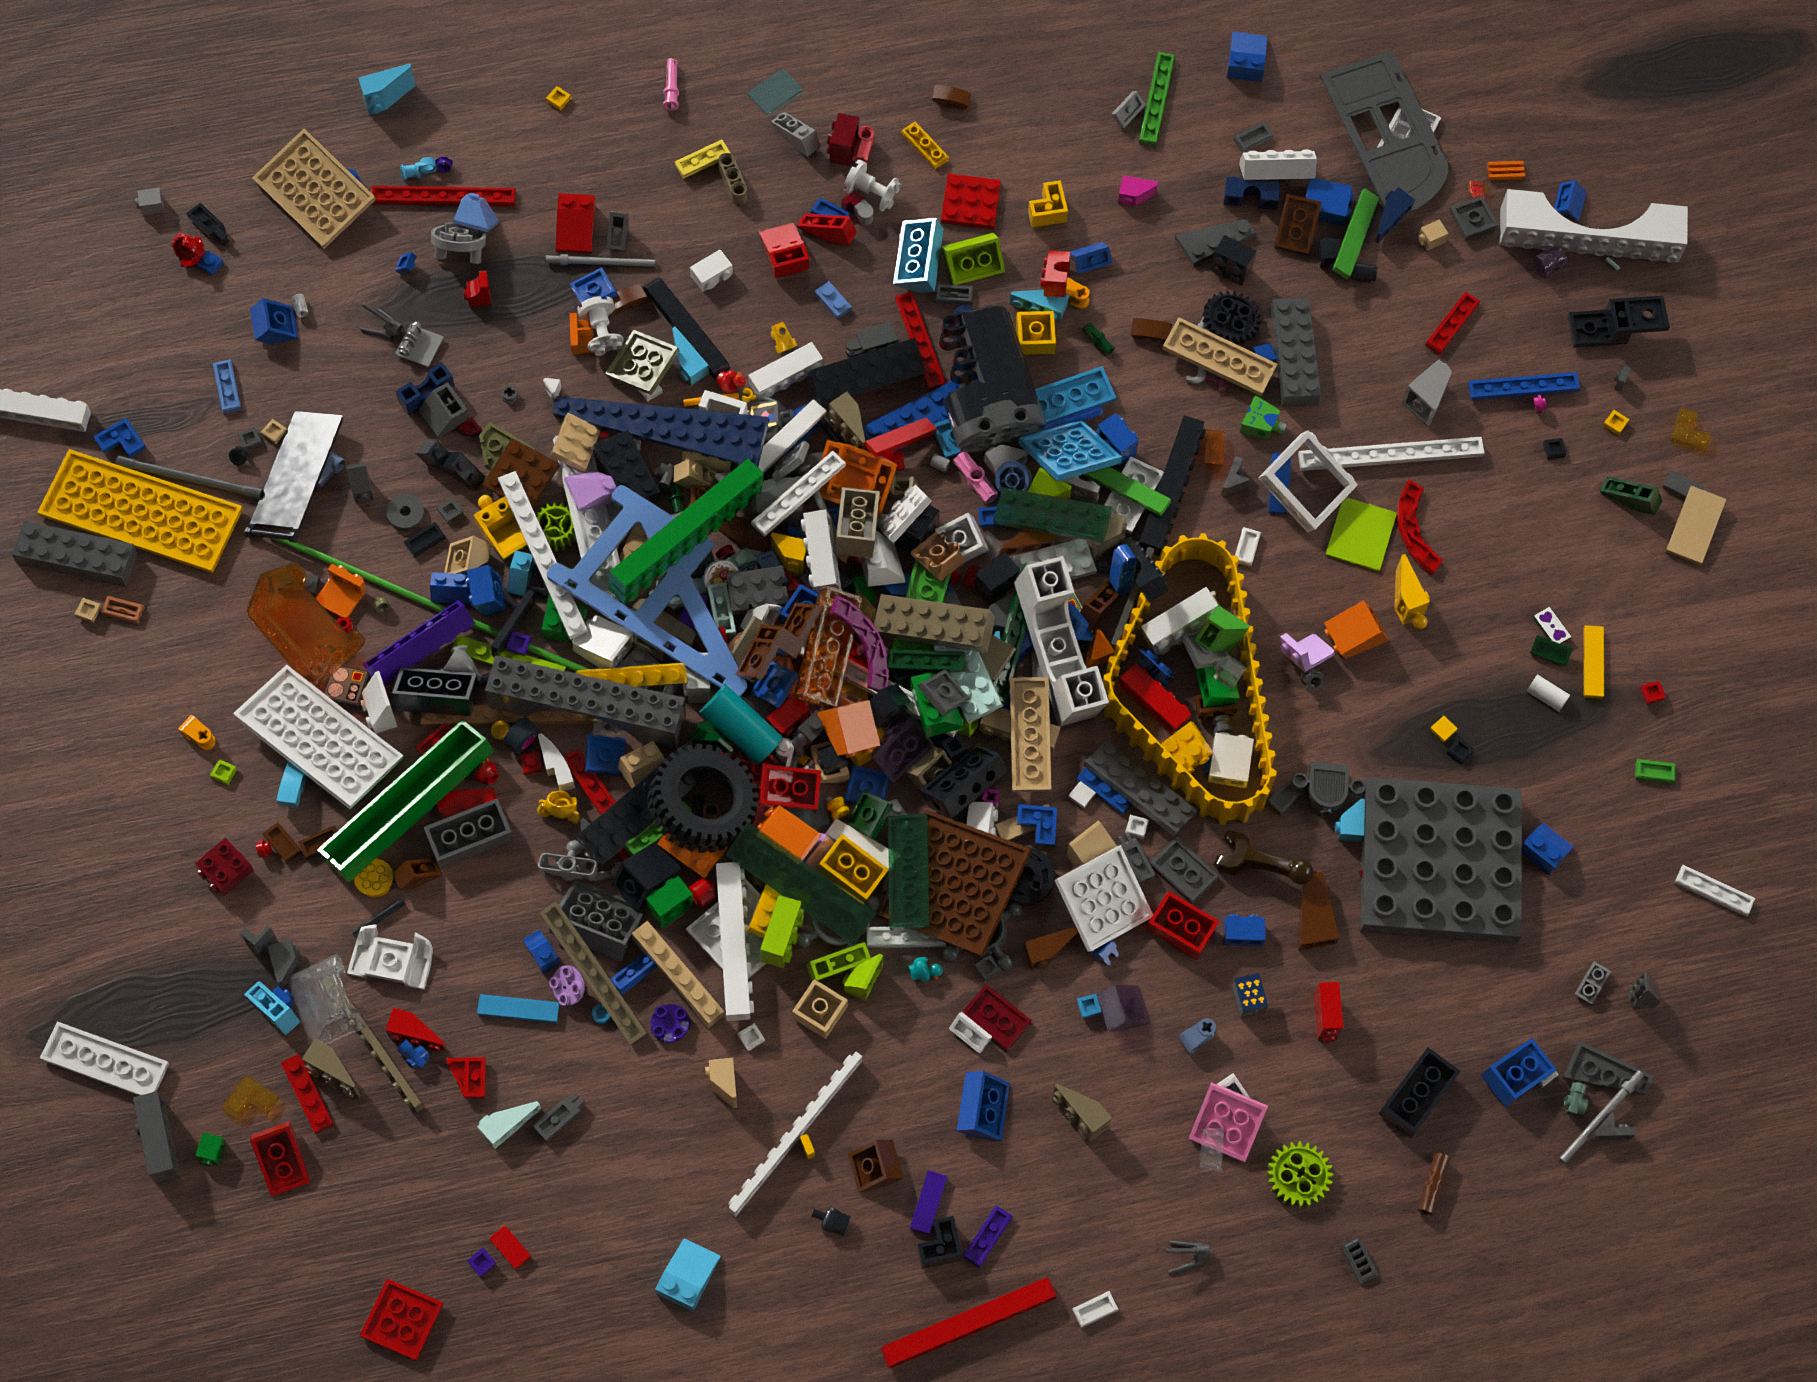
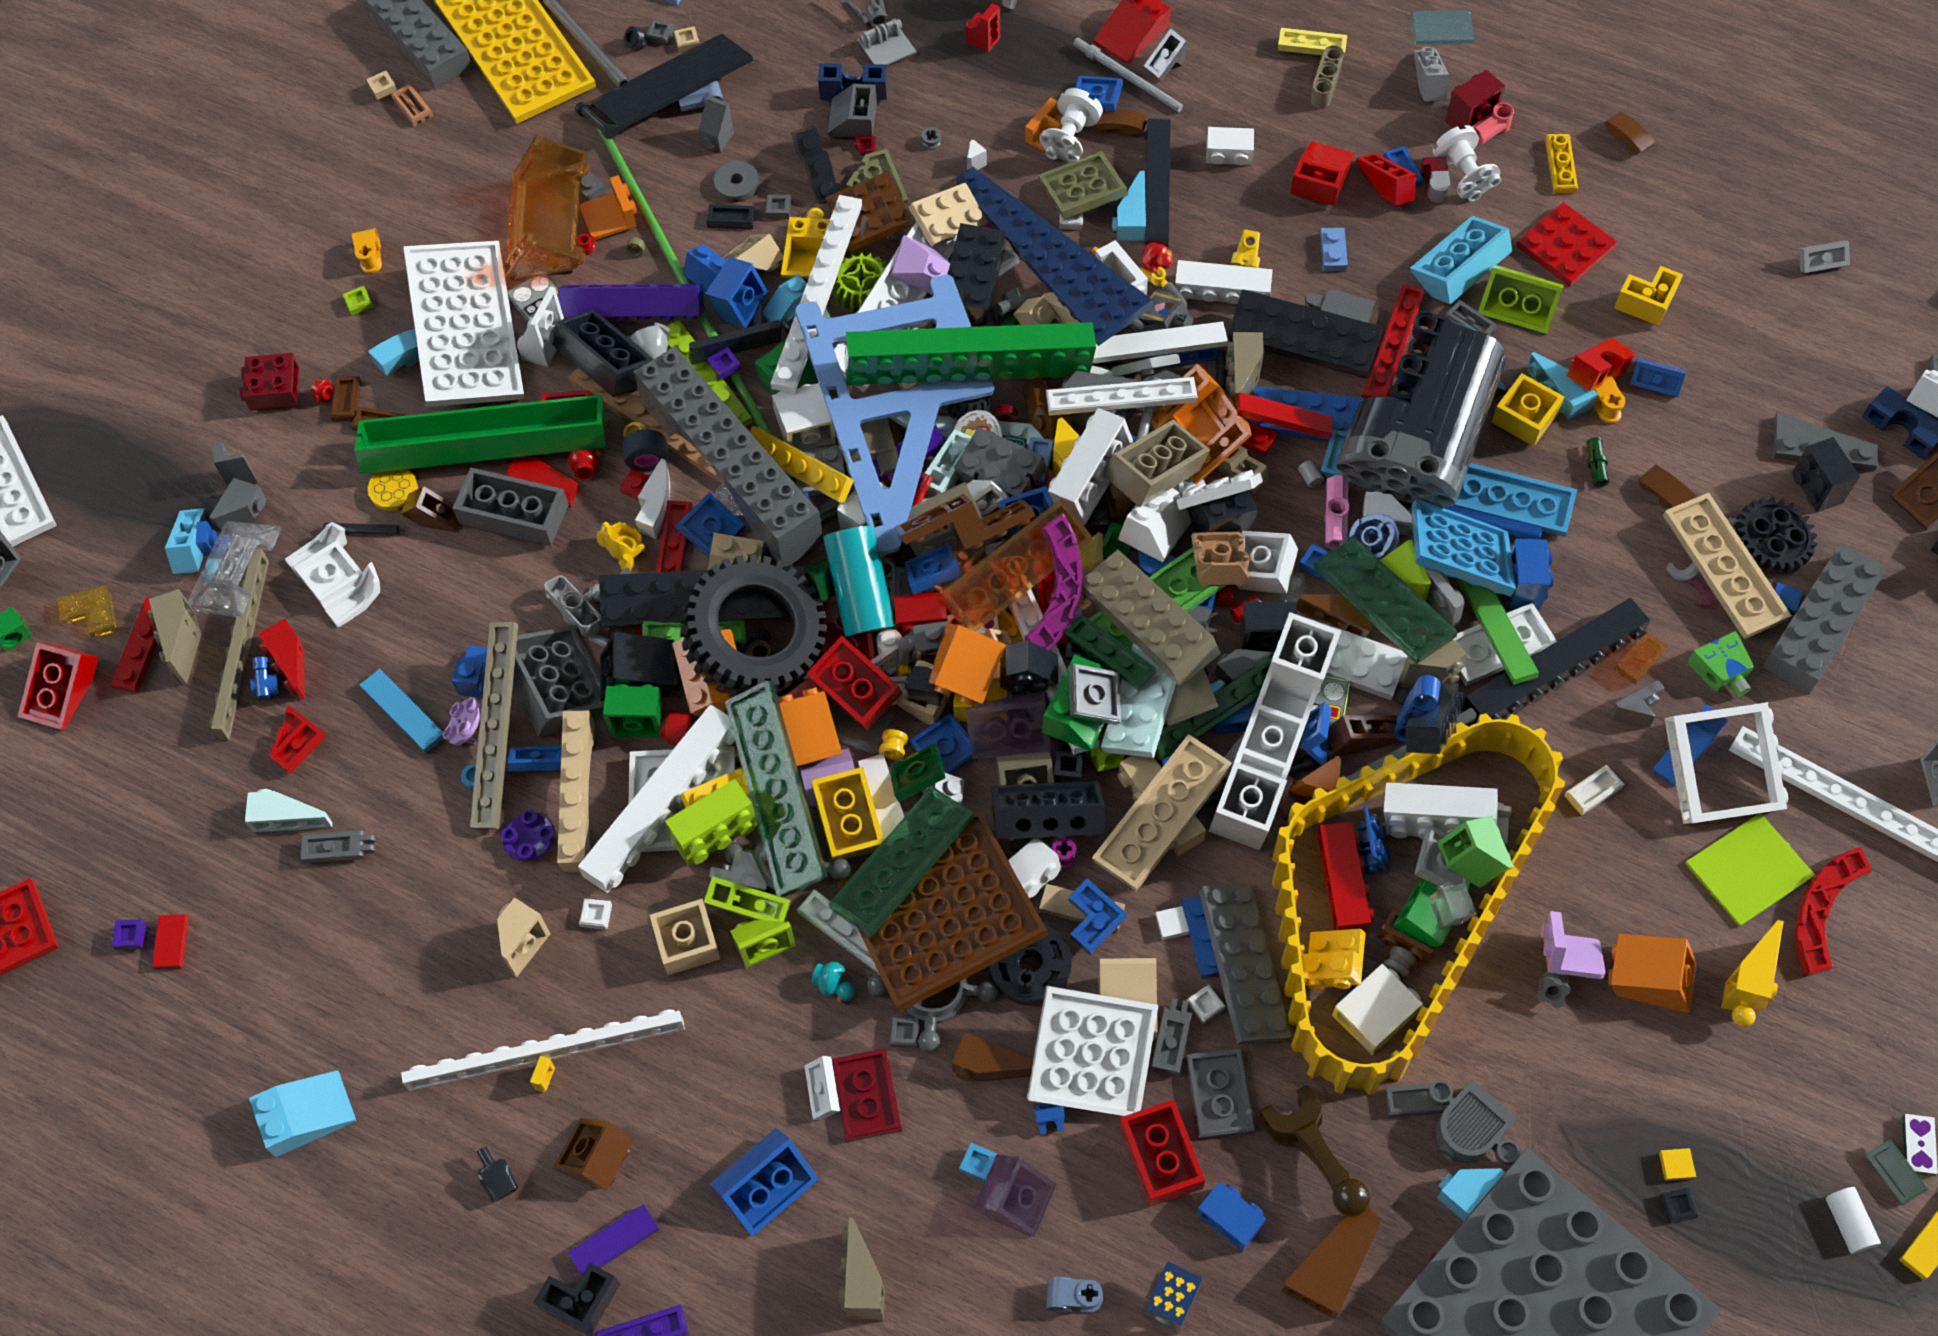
camera: 45 degrees right, 5 degrees down
(822, 947) = (743, 871): none -> flat silver slope
(1136, 190) = (1766, 340): dark pink slope -> none
(1156, 99) = (1867, 267): bright green tile -> none

